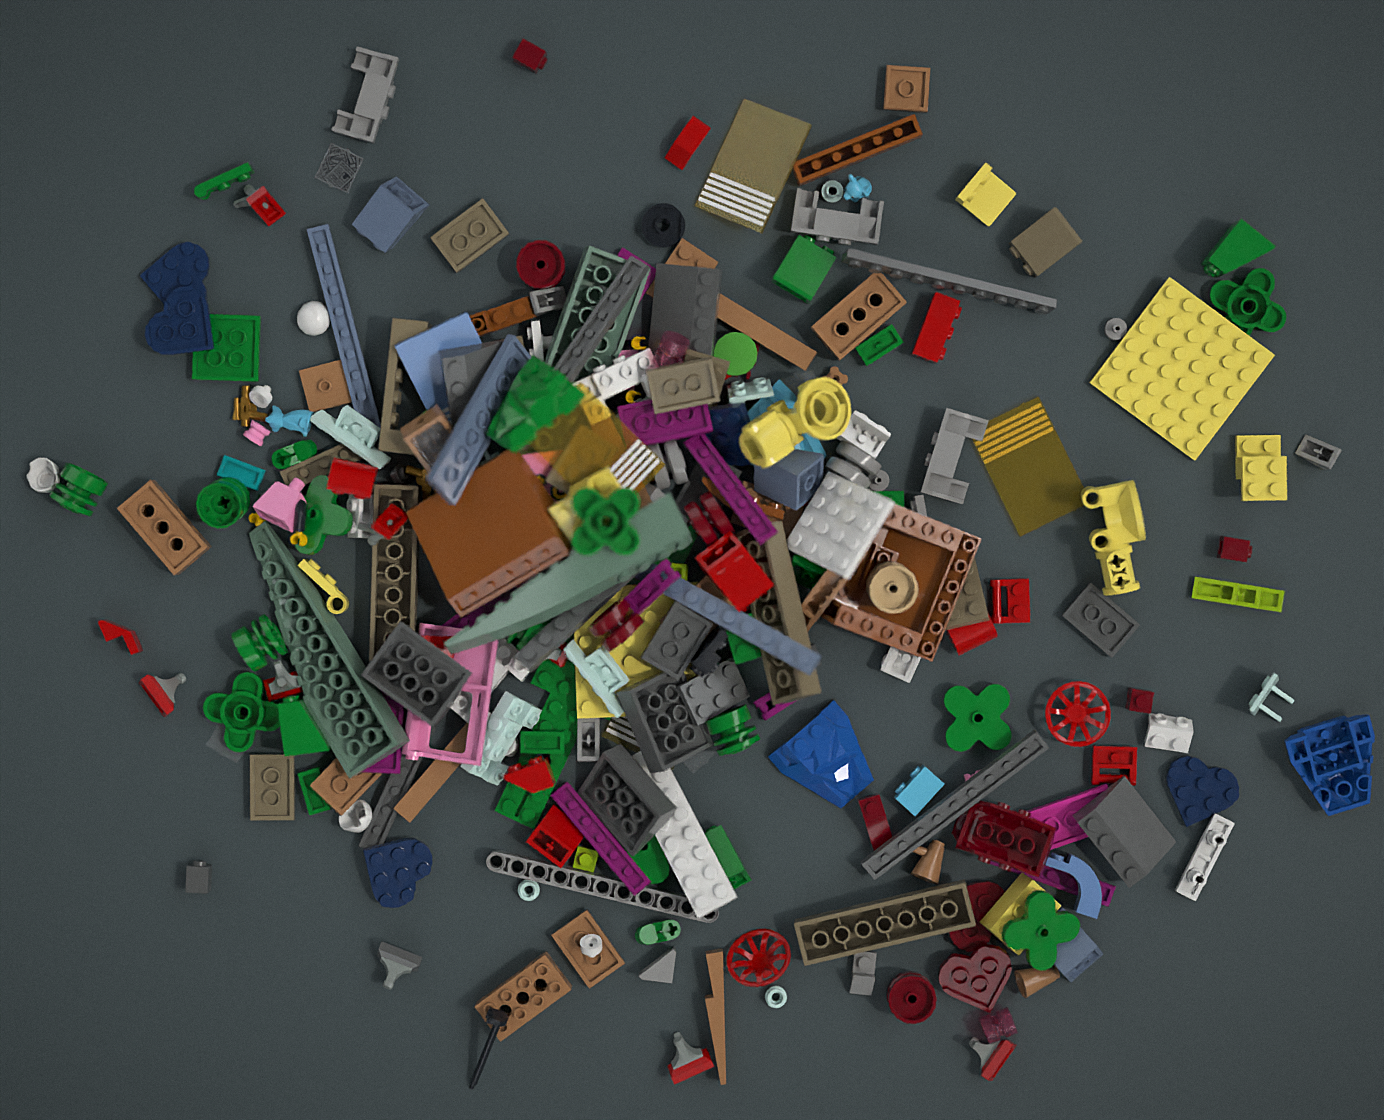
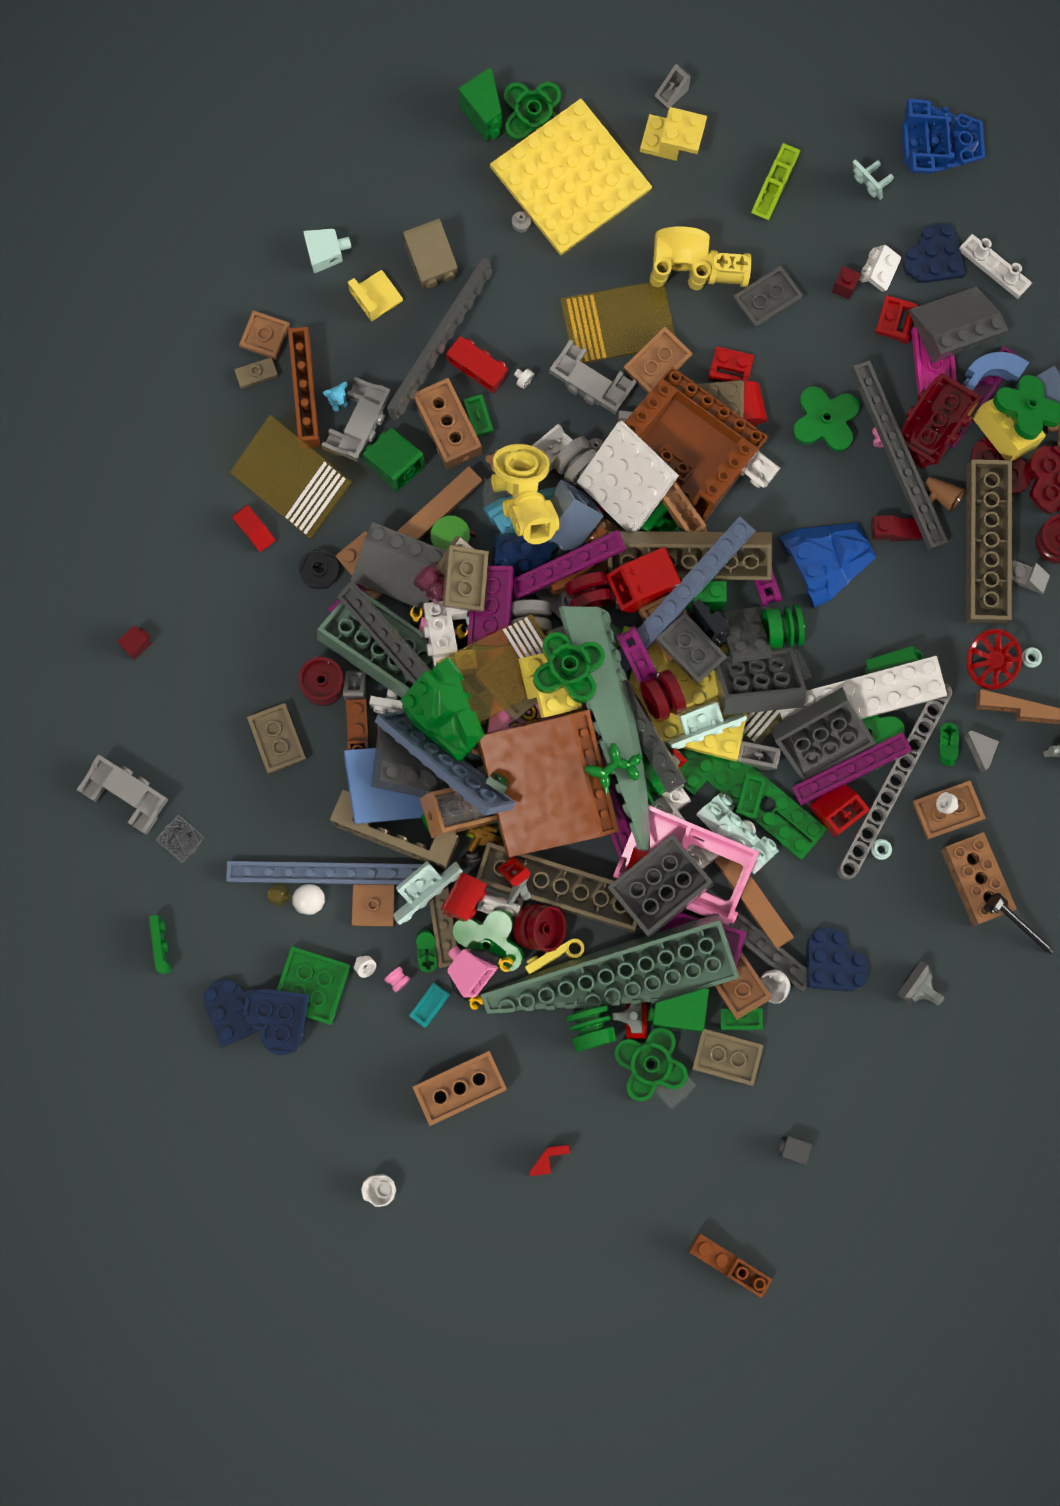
camera: 75 degrees left, 10 degrees down
(69, 842) = (730, 1265): none -> dark orange slope
(78, 489) = (401, 1158): green wheel -> none
(162, 691) = (612, 1136): red piece -> none
(216, 511) = (461, 1034): green wheel -> none
(246, 410) = (373, 985): pearl gold piece -> none
(262, 203) = (189, 912): red piece -> none
(295, 420) = (396, 941): medium azure animal -> none
(310, 286) = (278, 895): none -> clear yellow piece
(346, 563) = (540, 927): none -> dark red wheel
(389, 214) = (236, 803): sand blue slope -> none
(470, 480) = (498, 782): none -> dark green plate
(523, 603) = (603, 774): none -> green piece
(533, 776) = (779, 809): red slope -> none
(585, 859) = (866, 790): lime plate -> none
(741, 391) = (486, 527): light aqua plate -> none
(832, 198) = (335, 424): light aqua plate -> none
(862, 92) = (256, 373): none -> dark tan plate
(887, 599) = (694, 451): tan wheel -> none
(918, 789) = (877, 485): medium azure brick -> none
(935, 382) = (524, 378): none -> white tile
(993, 520) = (656, 359): none -> medium nougat plate
(1023, 124) = (325, 248): none -> light aqua torso
(1077, 714) = (844, 335): red wheel -> none
(1234, 549) = (736, 174): dark red brick -> none

